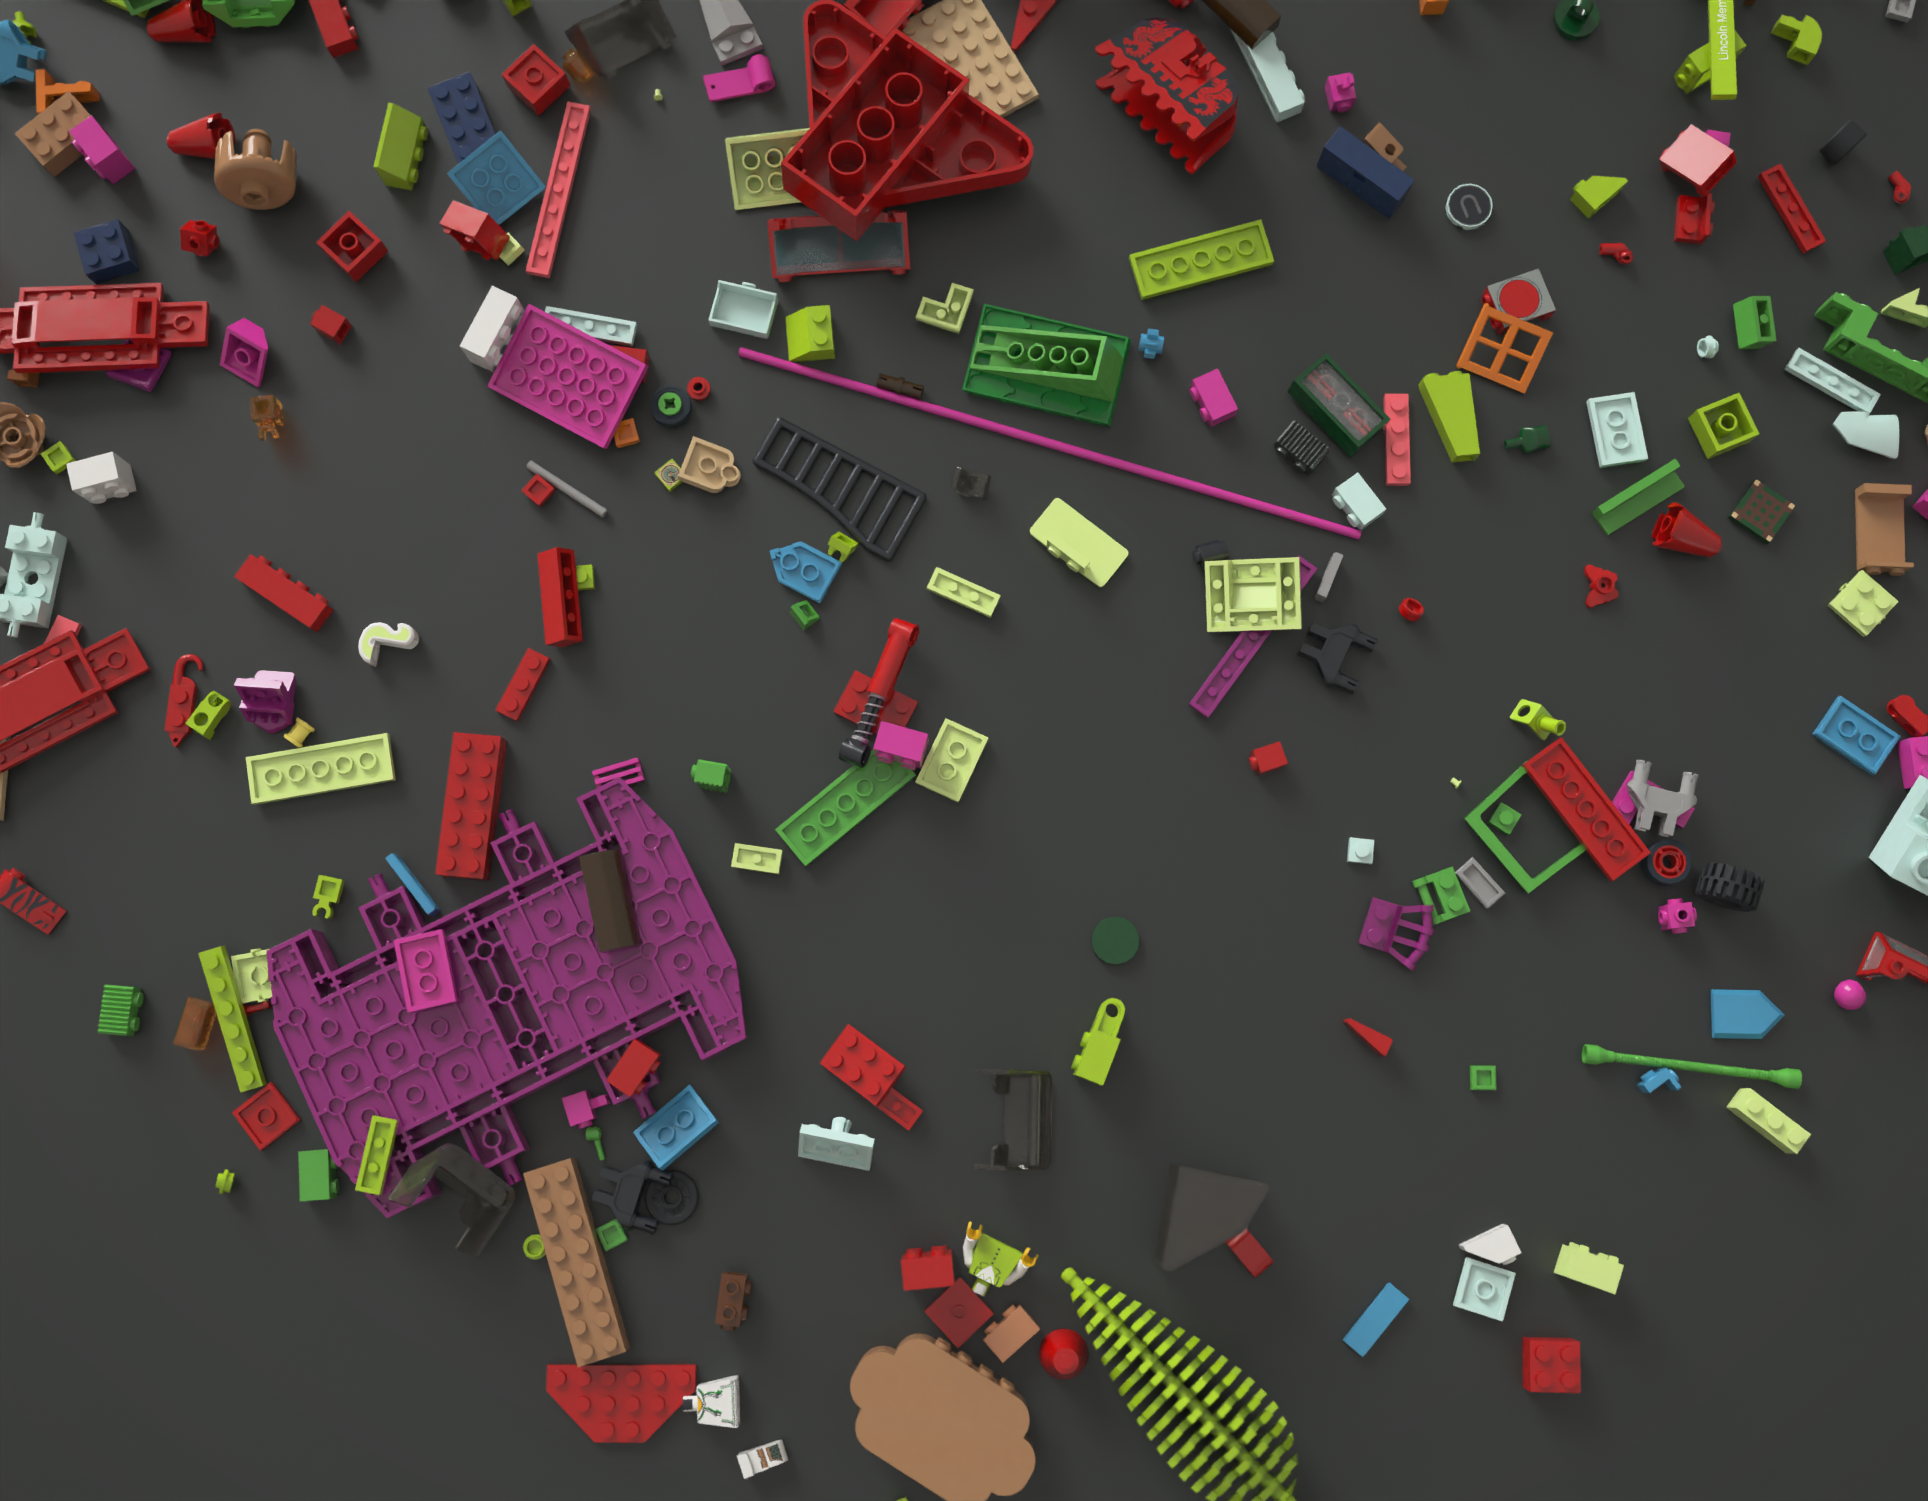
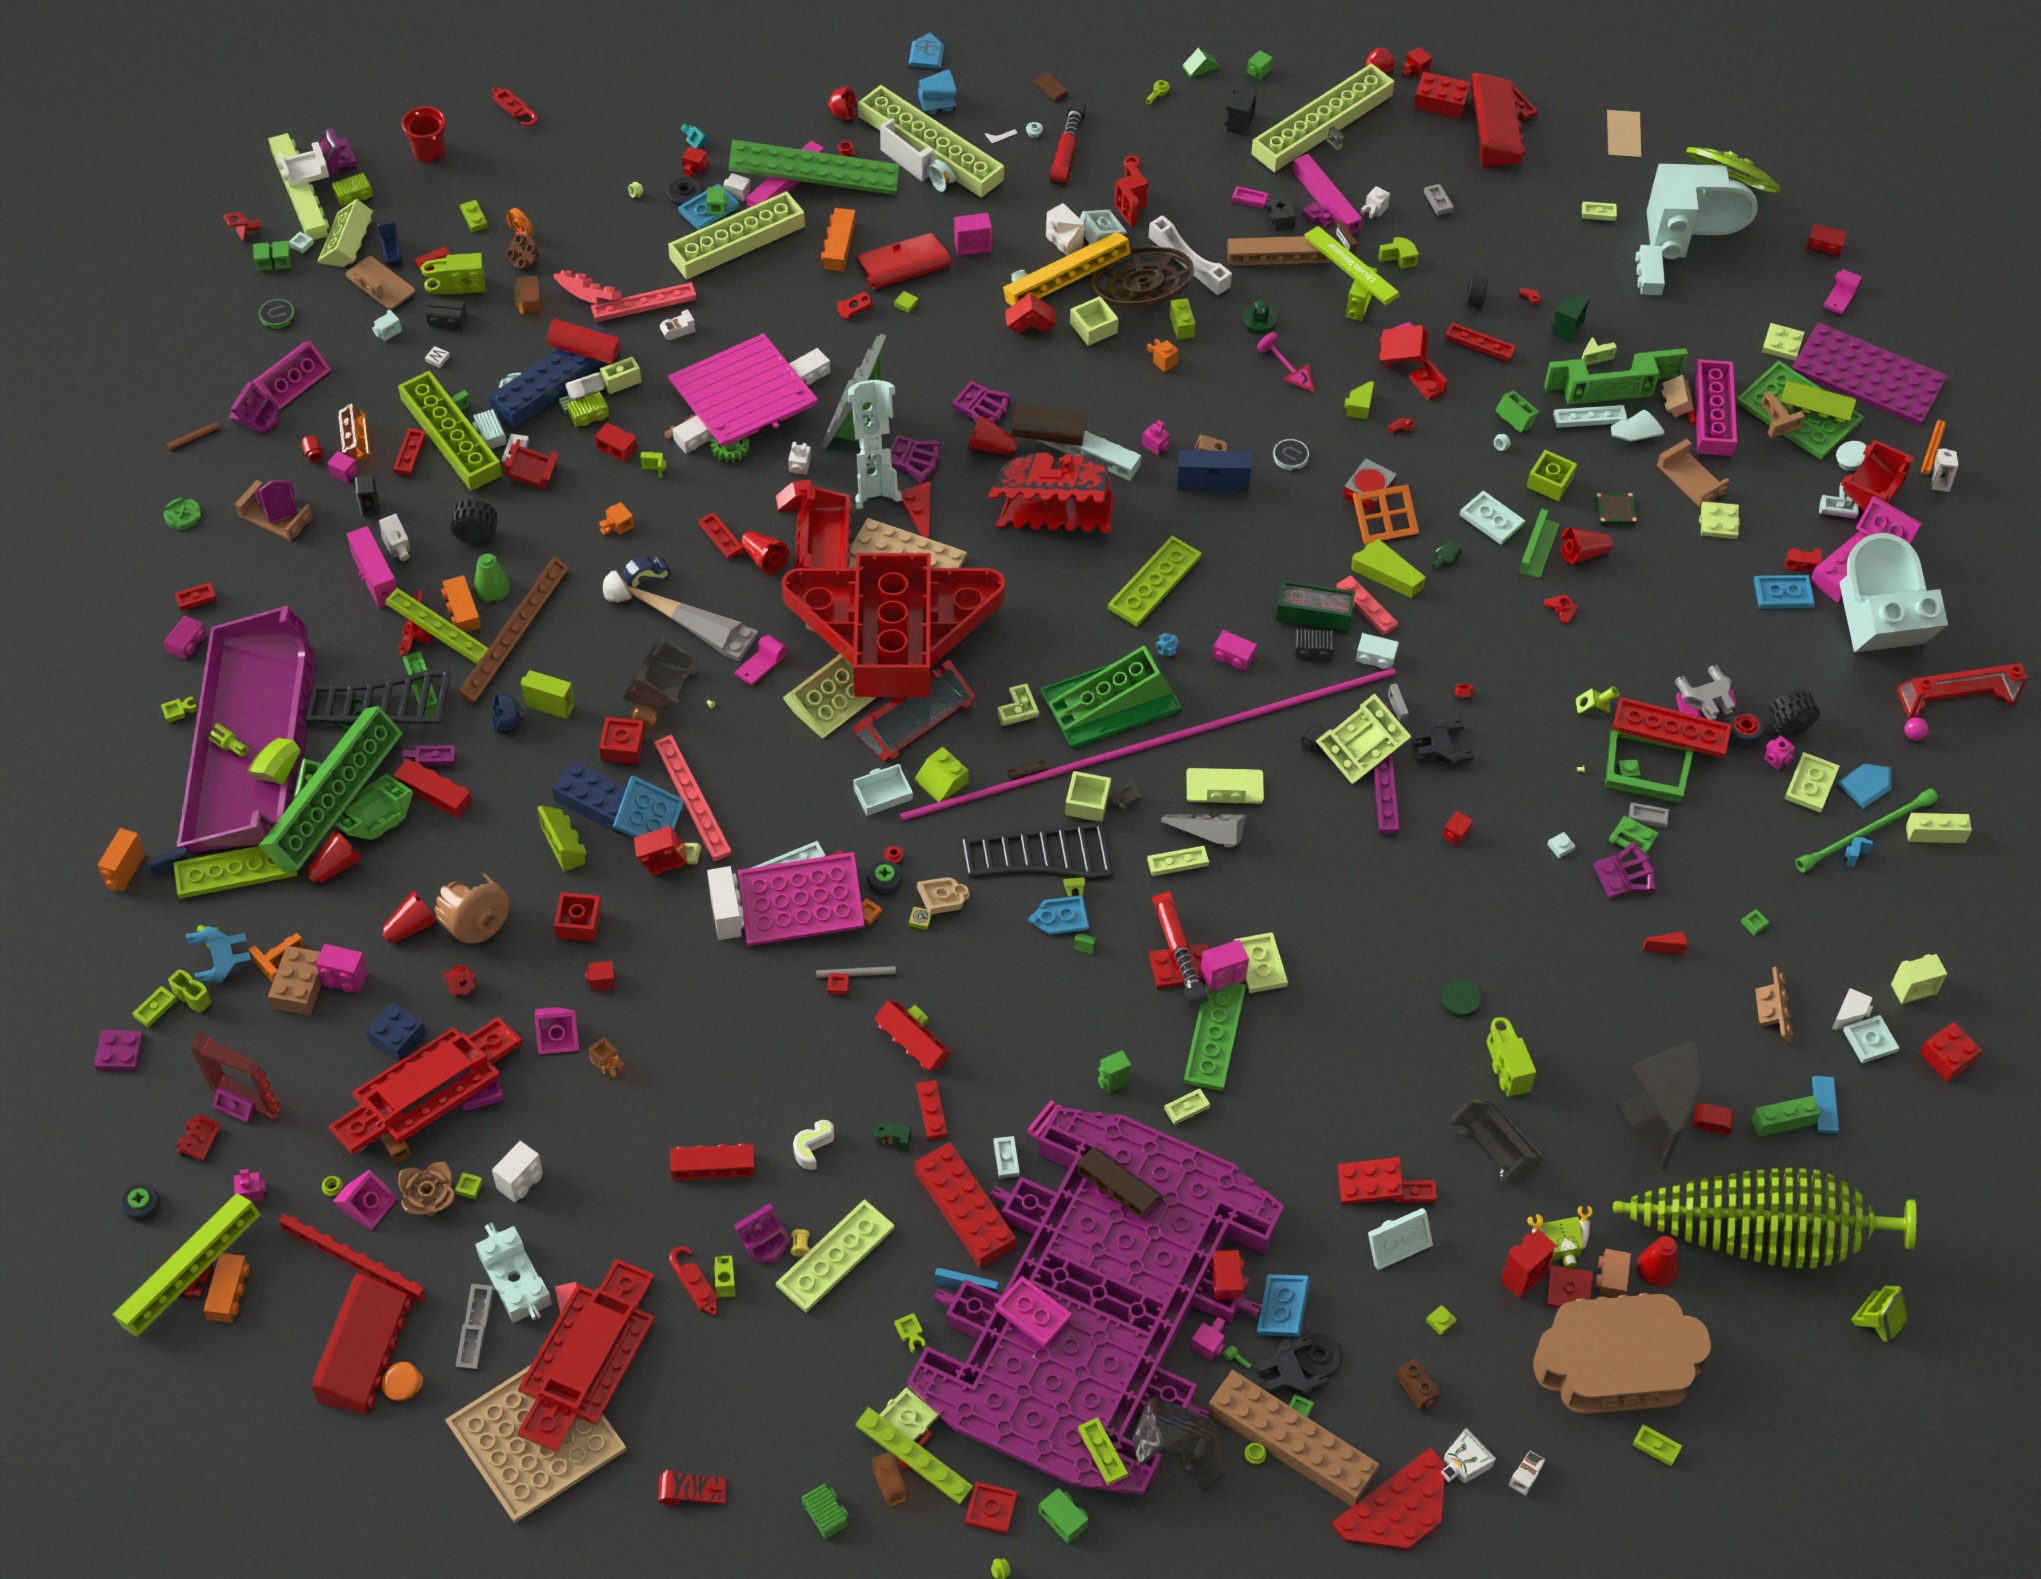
camera: 40 degrees left, 25 degrees down
(461, 679) = (892, 1133): none -> dark green leg
(549, 785) = (1006, 1157): none -> light aqua plate
(813, 1249) = (1441, 1320): none -> lime plate
(929, 460) = (1088, 796): none -> yellowish green piece
(1027, 583) = (1223, 829): none -> light grey wedge
(1322, 1304) = (1785, 1116): none -> bright green brick
(1418, 1180) = (1773, 1006): none -> medium nougat bracket
(1557, 120) = (1299, 377): none -> dark pink piece
(1682, 972) = (1811, 782): none -> yellowish green plate

